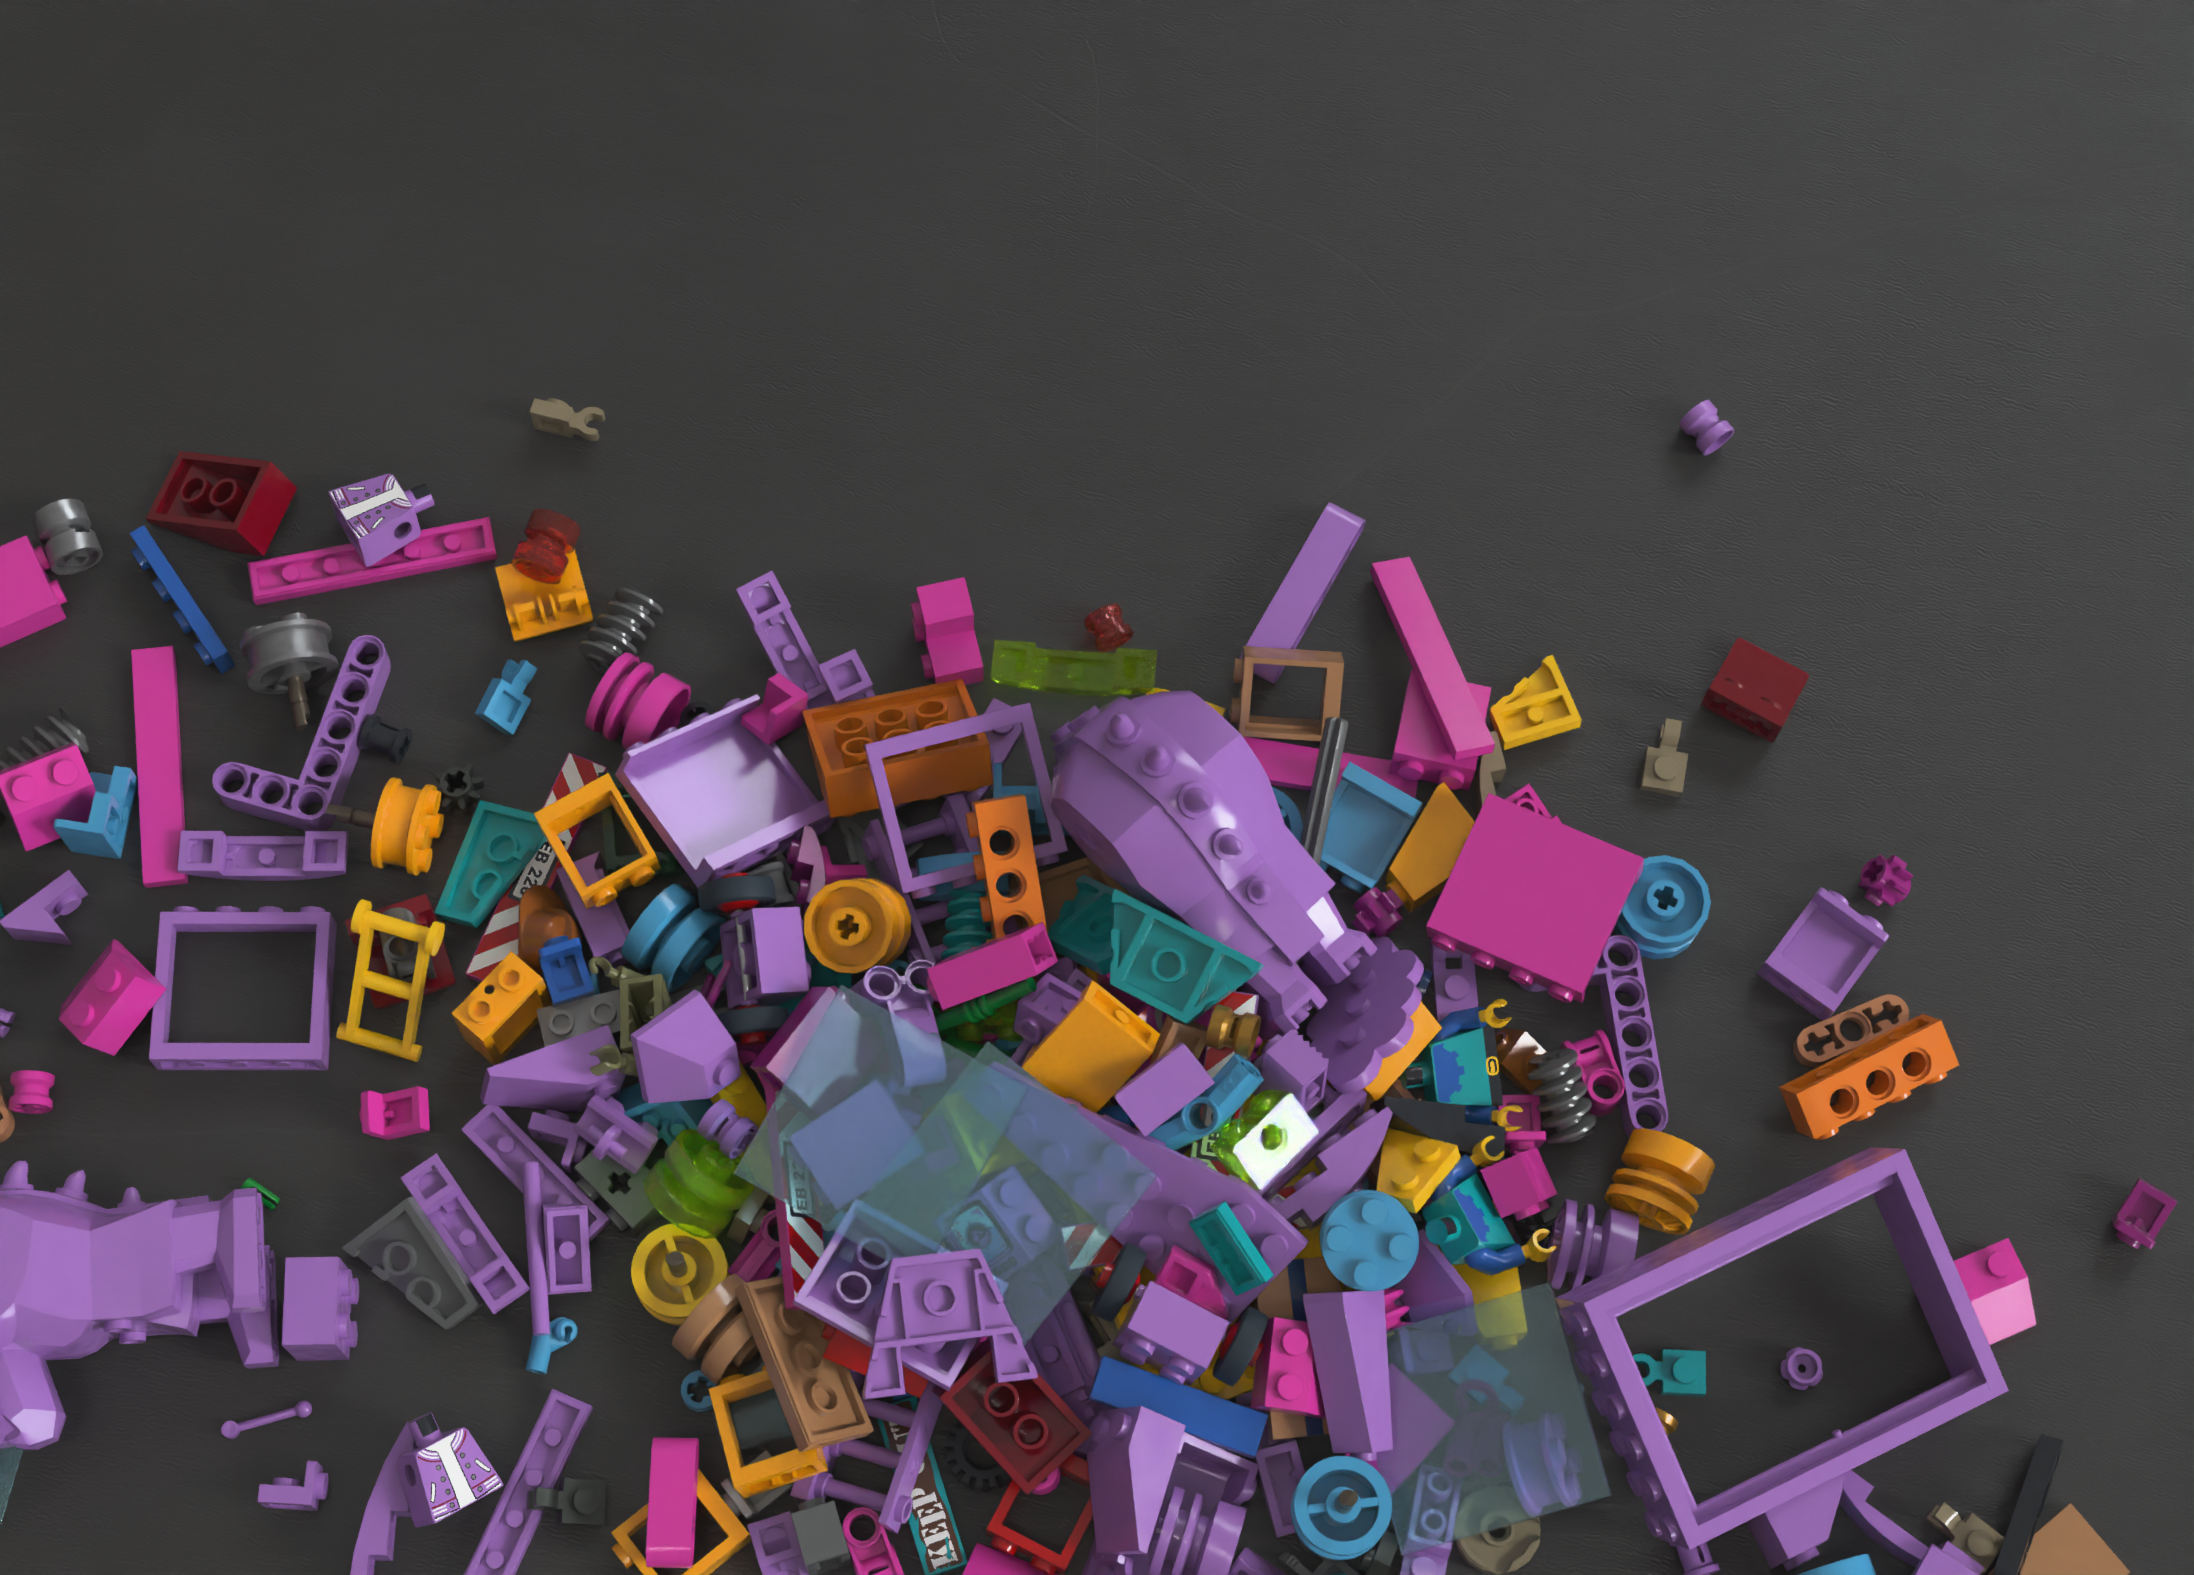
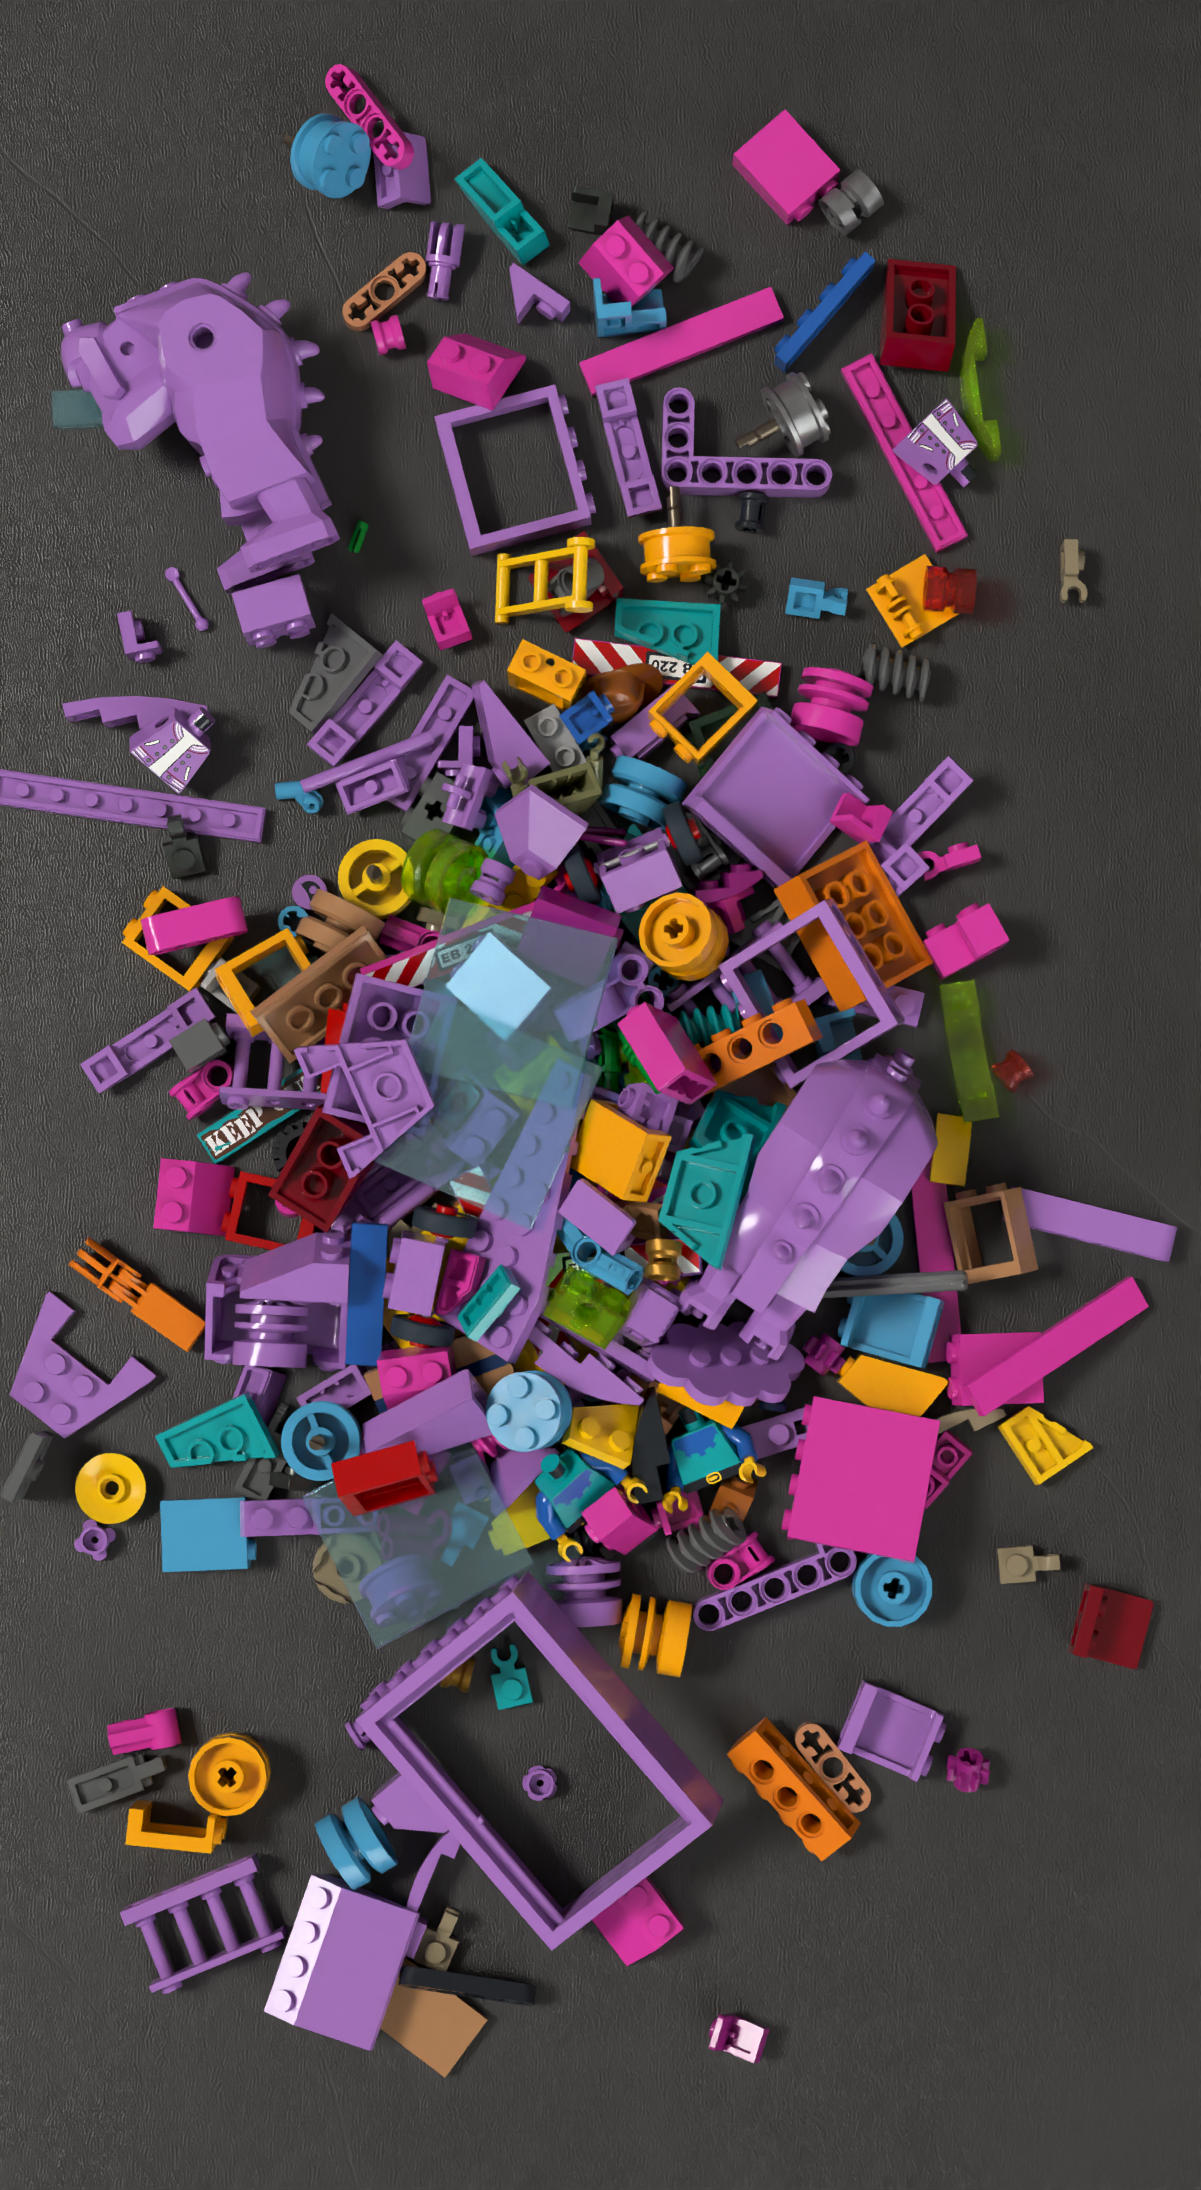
camera: 80 degrees right, 15 degrees up
(330, 469) = (987, 431): none -> clear neon green slope
(668, 1364) = (305, 888): none -> medium lavender tile
(850, 619) = (958, 856): none -> dark pink plate
(1407, 1434) = (384, 1478): none -> red window

